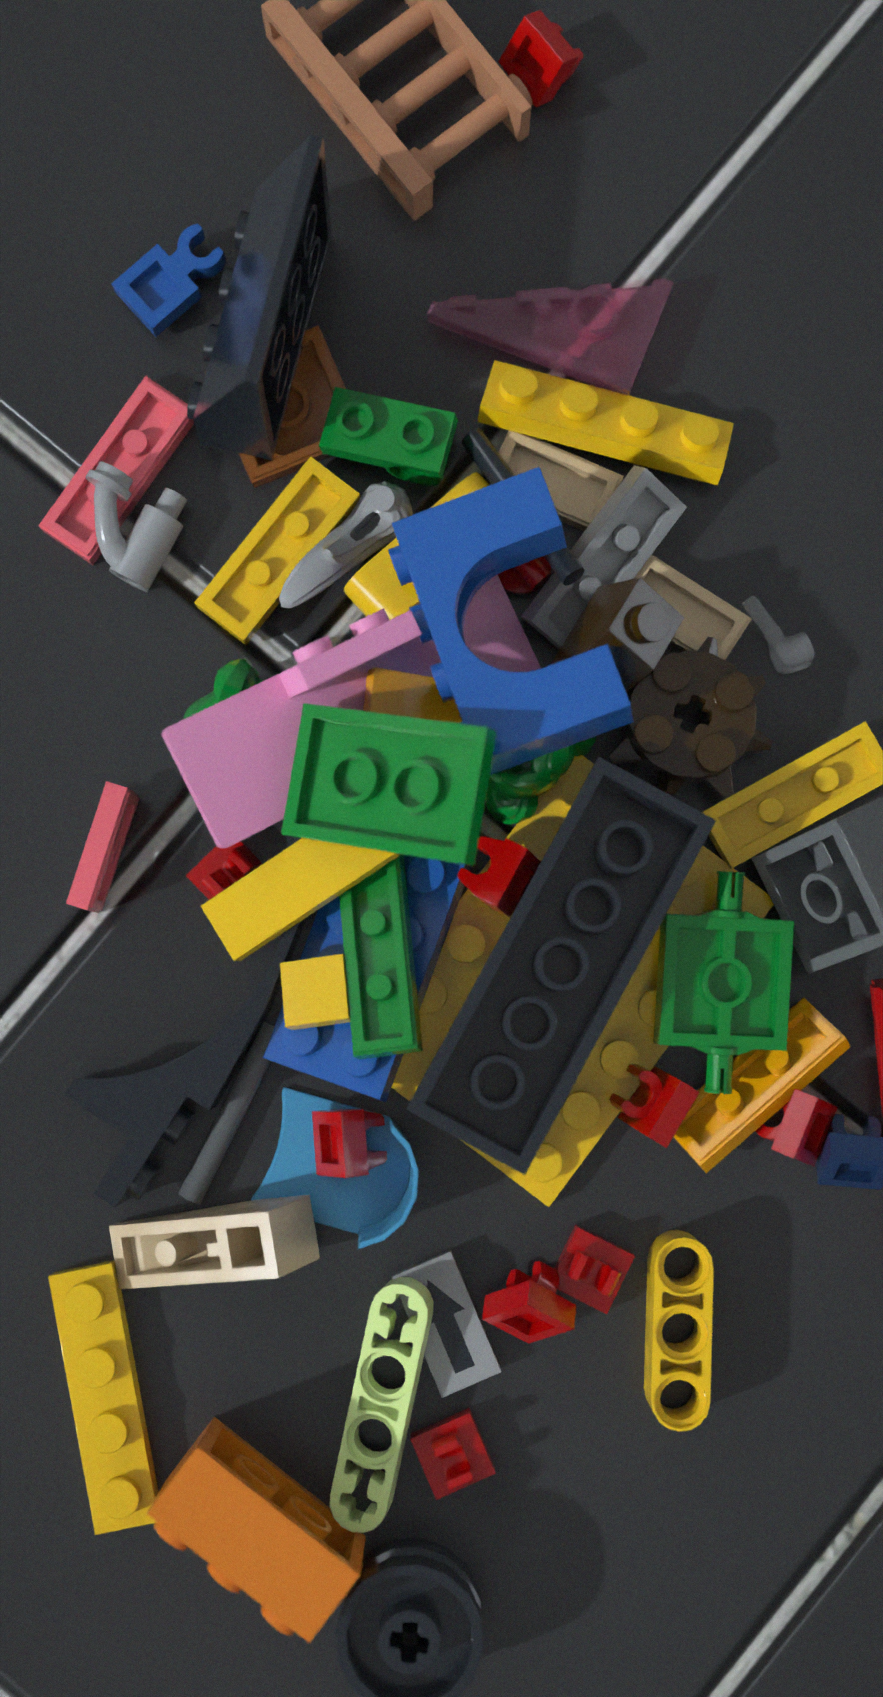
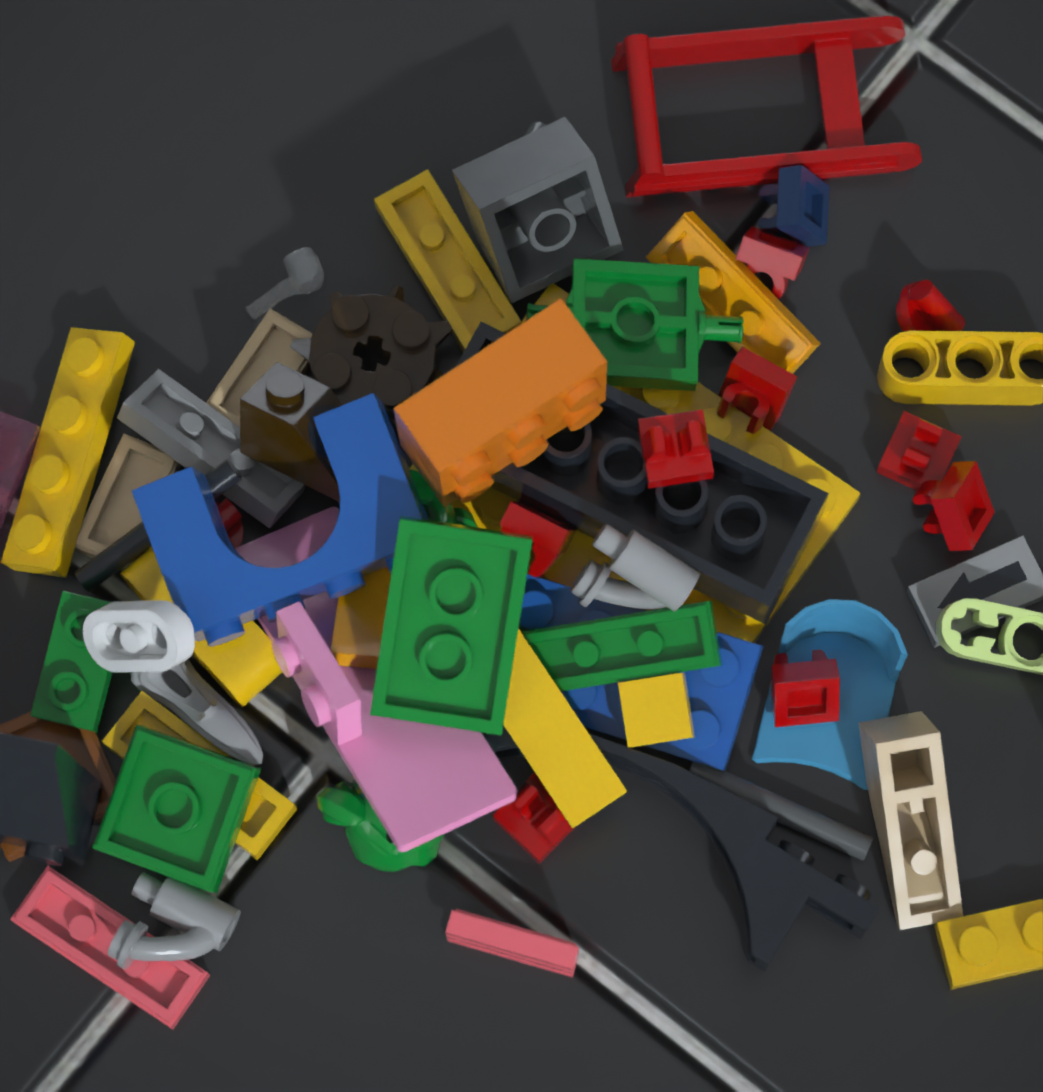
camera: 90 degrees left, 10 degrees down
(240, 526) = (176, 808): none -> green tile
(393, 480) = (139, 636): none -> white plate
(445, 972) = (653, 574): none -> light grey plant
(572, 1017) = (675, 448): none -> red tile
(609, 835) = (503, 404): none -> orange brick
(739, 1284) = (926, 309): none -> red plate

